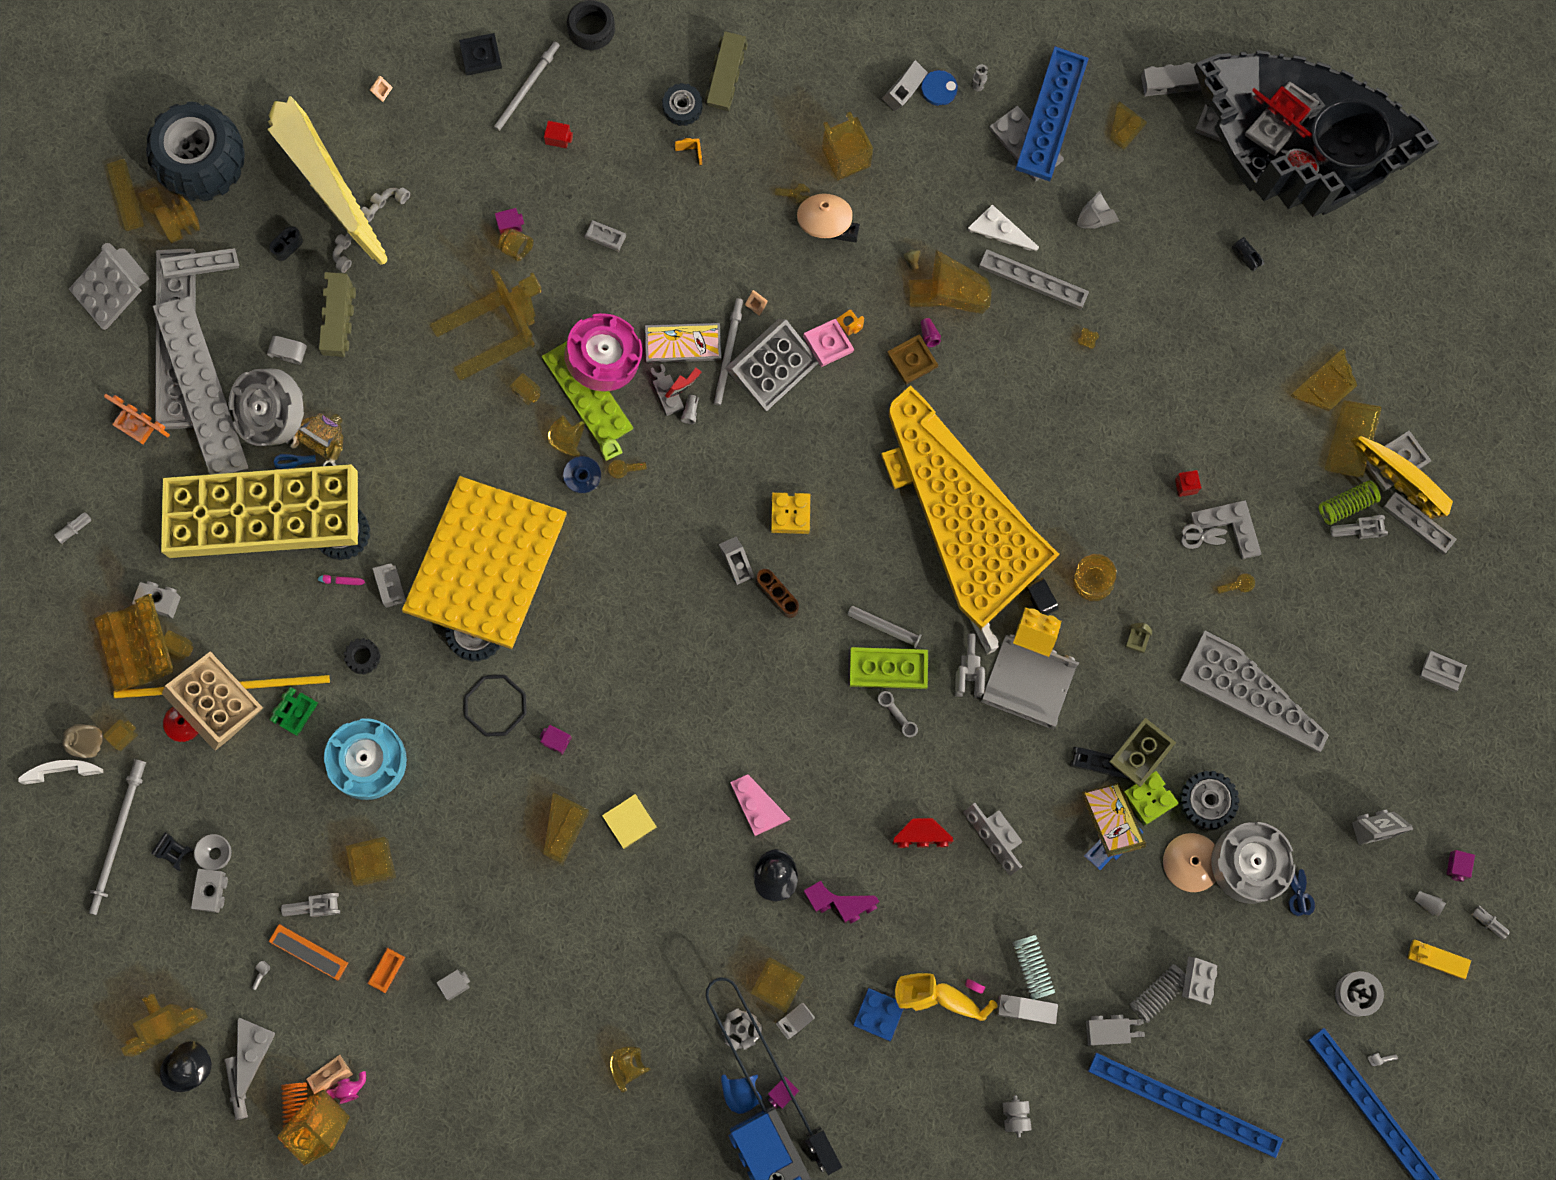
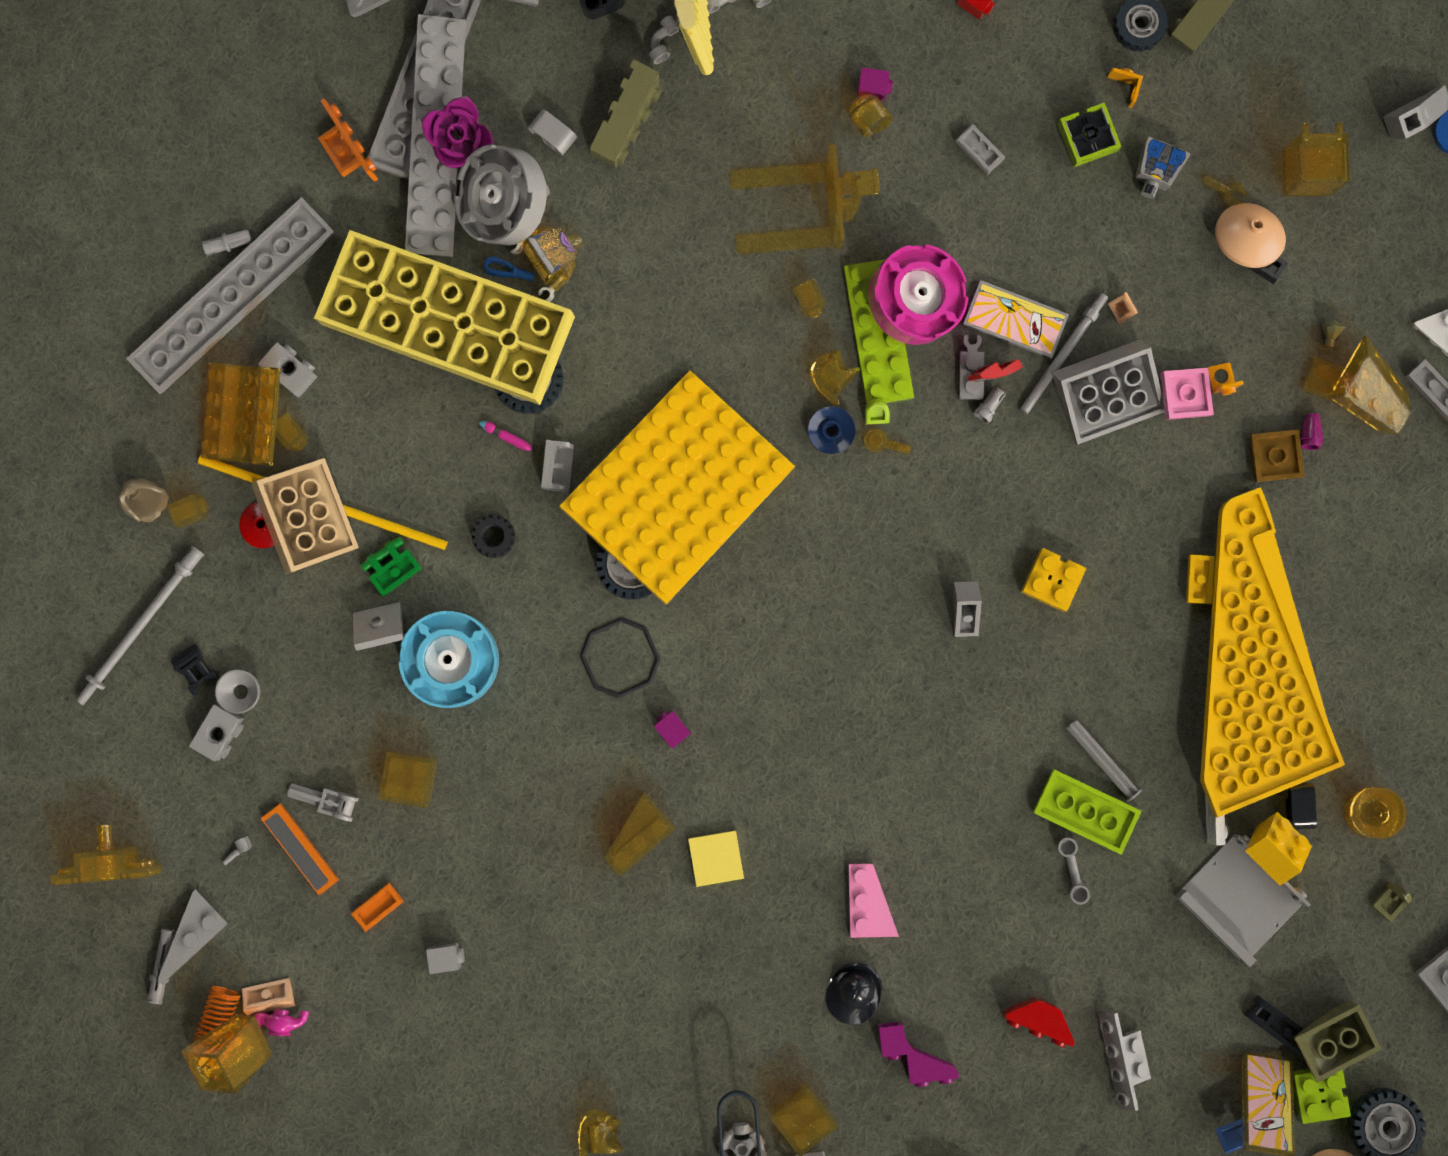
camera: 25 degrees right, 10 degrees up
(37, 774) = (79, 517): white slope -> none
(91, 565) = (230, 296): none -> light grey plate
(185, 1067) = (115, 918): black hat -> none
(214, 363) = (457, 115): none -> magenta brick
(301, 757) = (378, 626): none -> light grey plate
(679, 194) = (1089, 135): none -> piece
(738, 195) = (1159, 166): none -> torso
(775, 584) = (1005, 677): reddish brown beam -> none
(970, 671) = (1180, 857): light grey plant -> none

